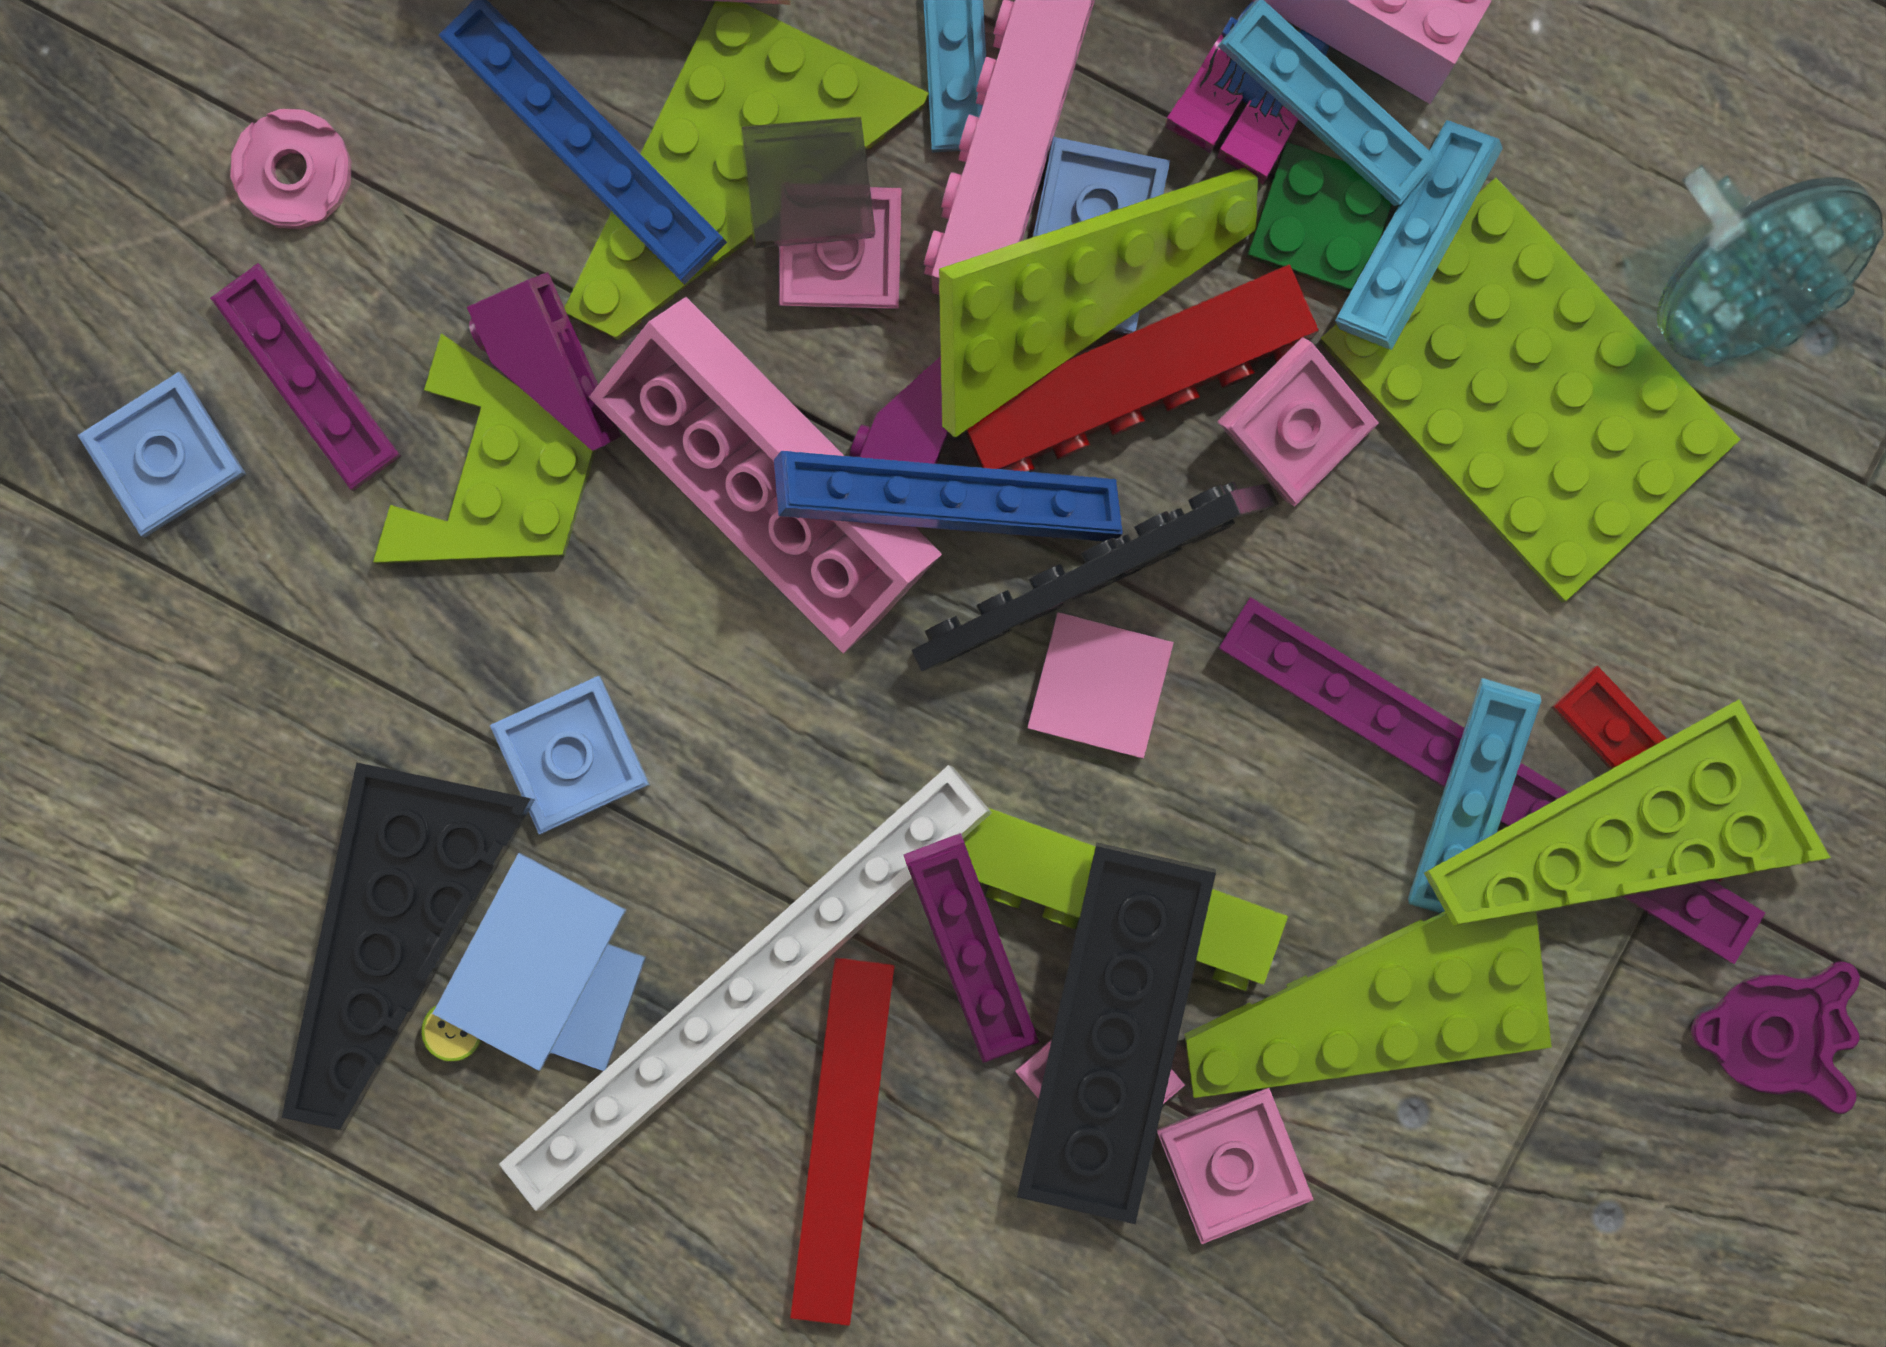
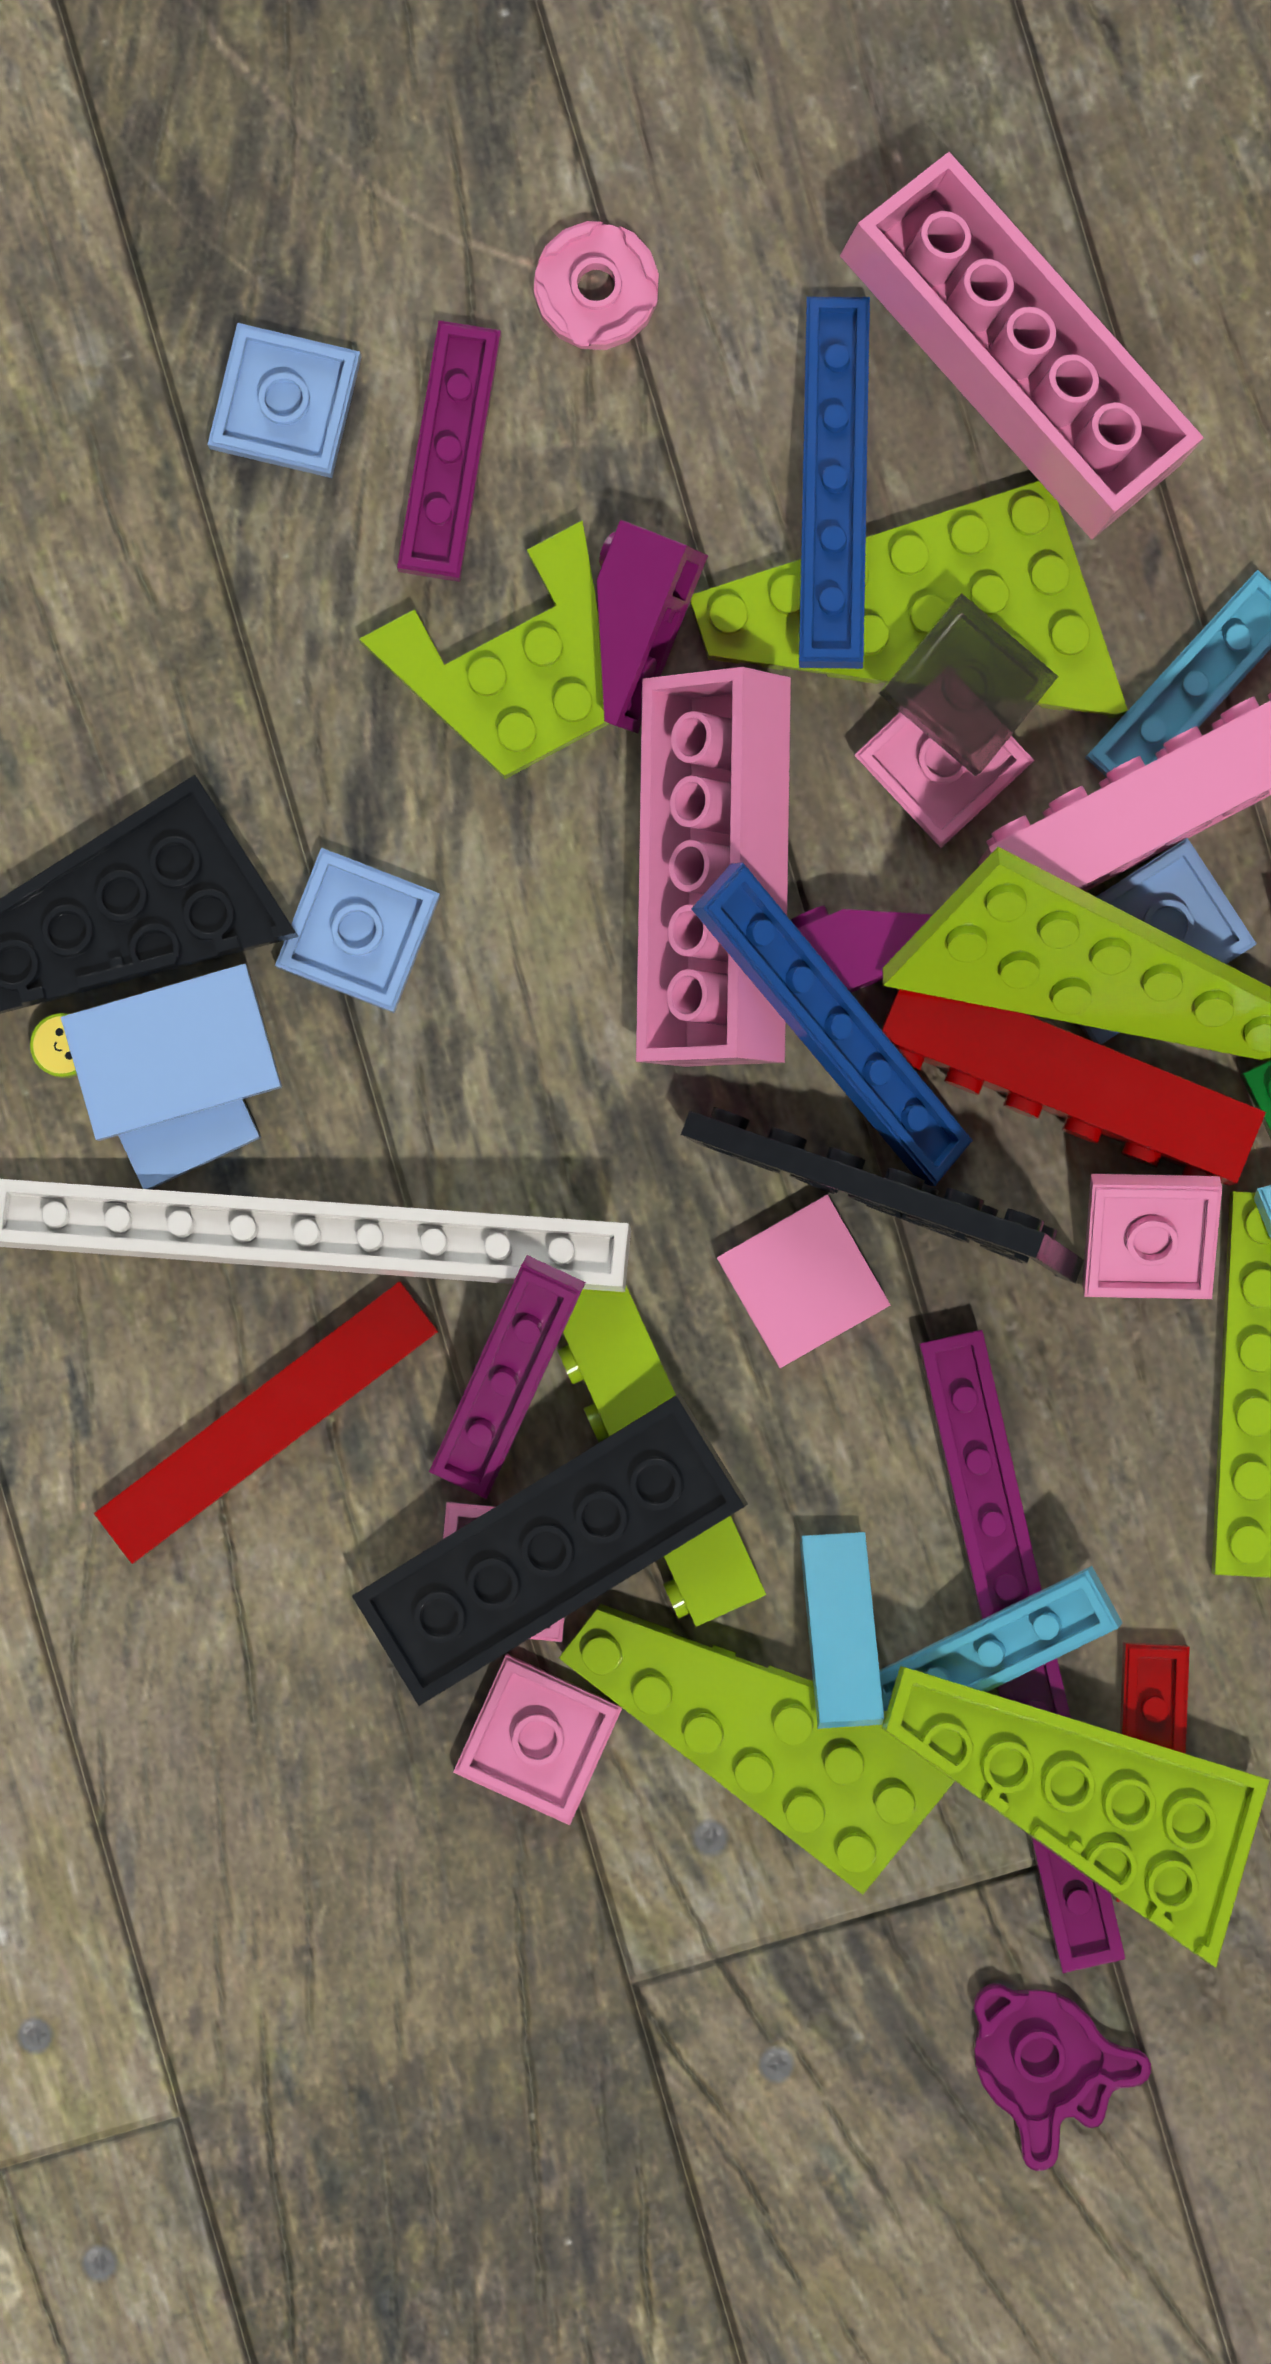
camera: 45 degrees right, 0 degrees up
(1360, 888) = (841, 1630): none -> medium azure tile

